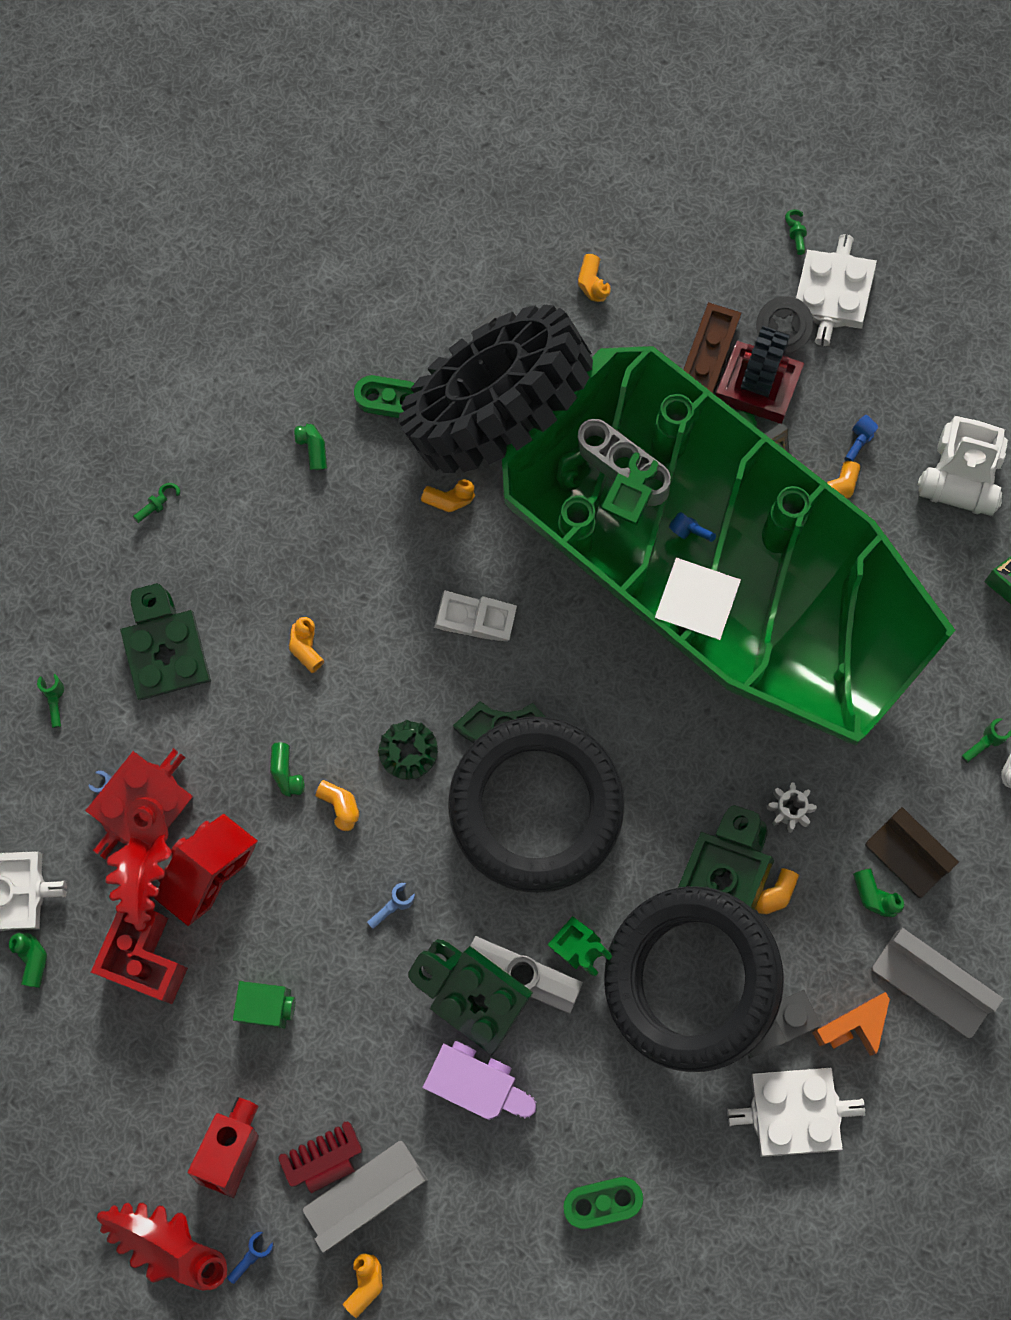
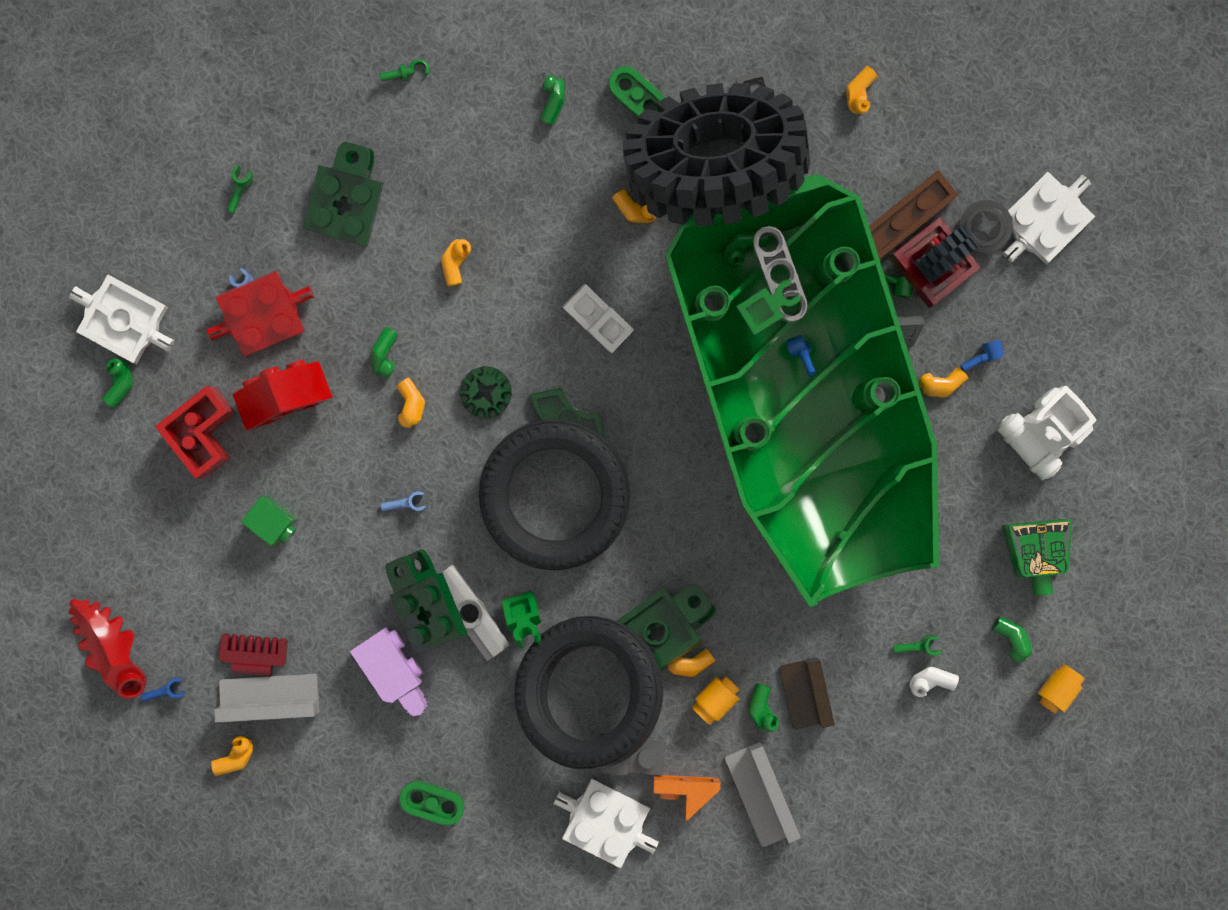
camera: 20 degrees right, 15 degrees up
(139, 862) = (233, 364): red plant -> none
(220, 1165) = (173, 617): red torso -> none
(697, 598) = (762, 426): white sticker -> none
(783, 813) = (742, 618): white gear -> none
(797, 230) = (1050, 149): green hand -> none
(825, 912) = (716, 699): none -> light orange brick

